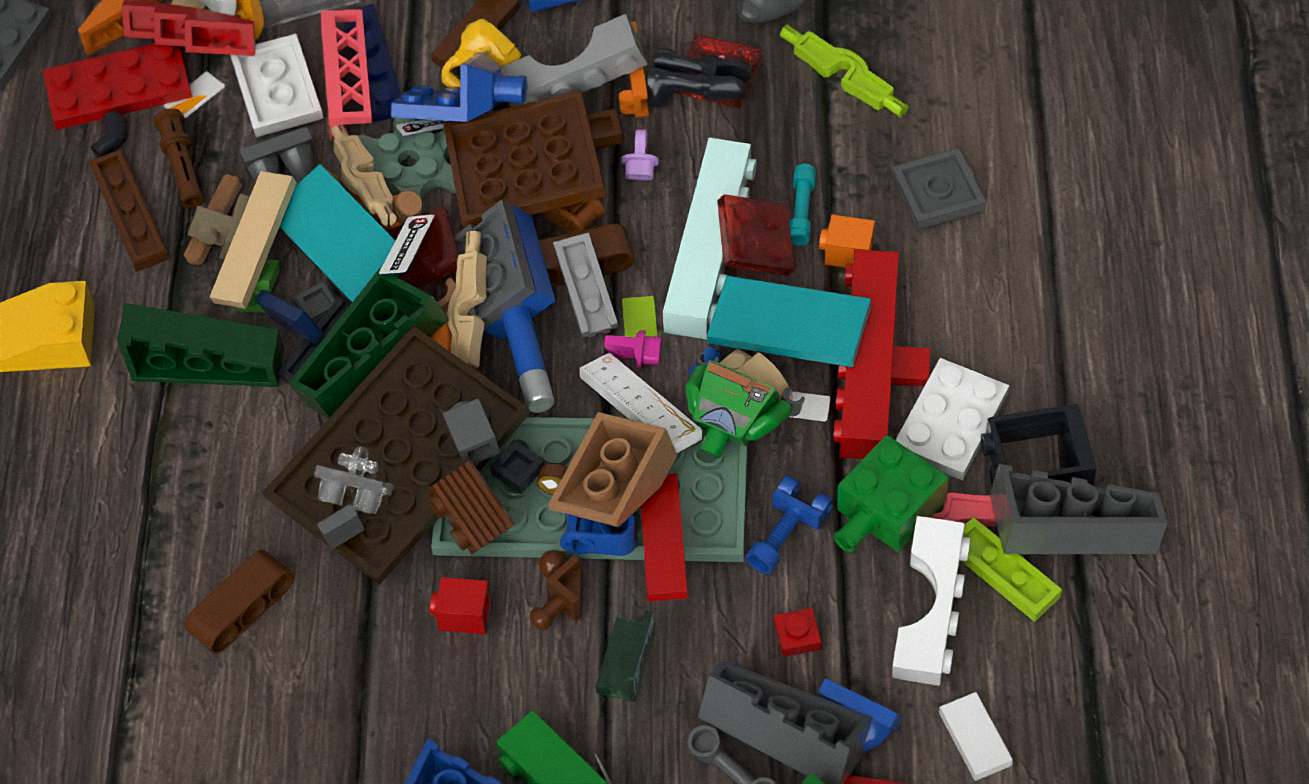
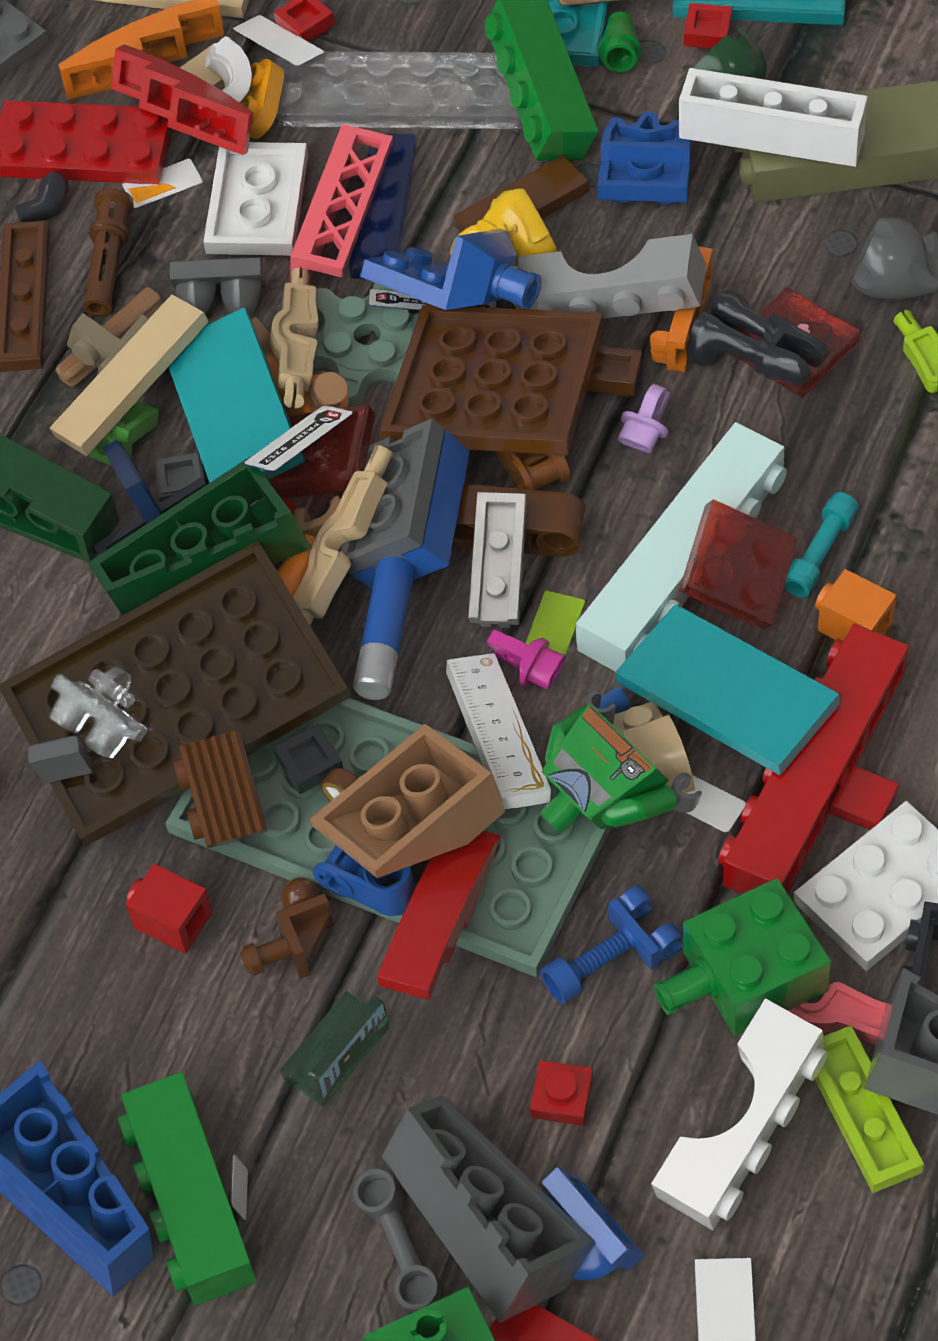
camera: 25 degrees right, 0 degrees up
(471, 431) = (260, 696): dark grey brick -> none

